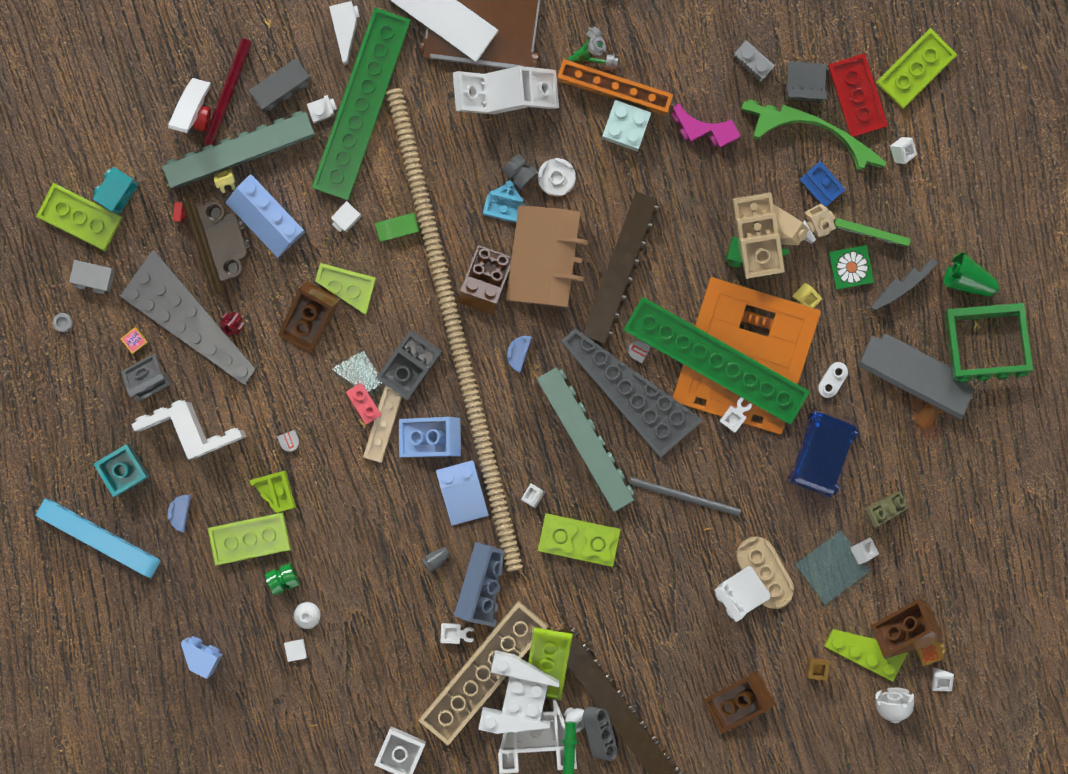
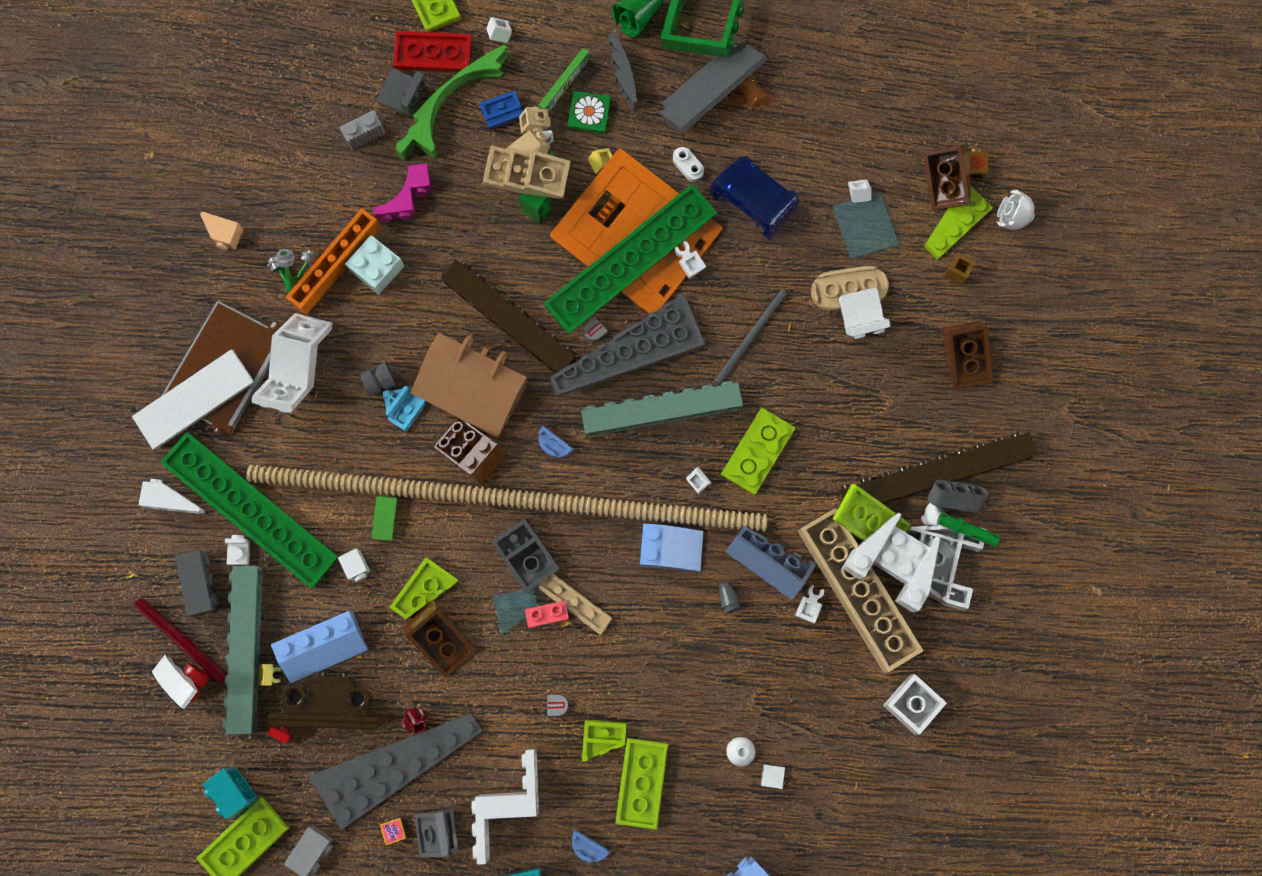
camera: 75 degrees left, 10 degrees down
(282, 579) = (695, 763): green wheel -> none
(430, 437) = (604, 560): light blue slope -> none
(556, 177) = (398, 348): white tile -> none
(885, 509) = (828, 158): olive slope -> none
(942, 680) = (1005, 164): white slope -> none

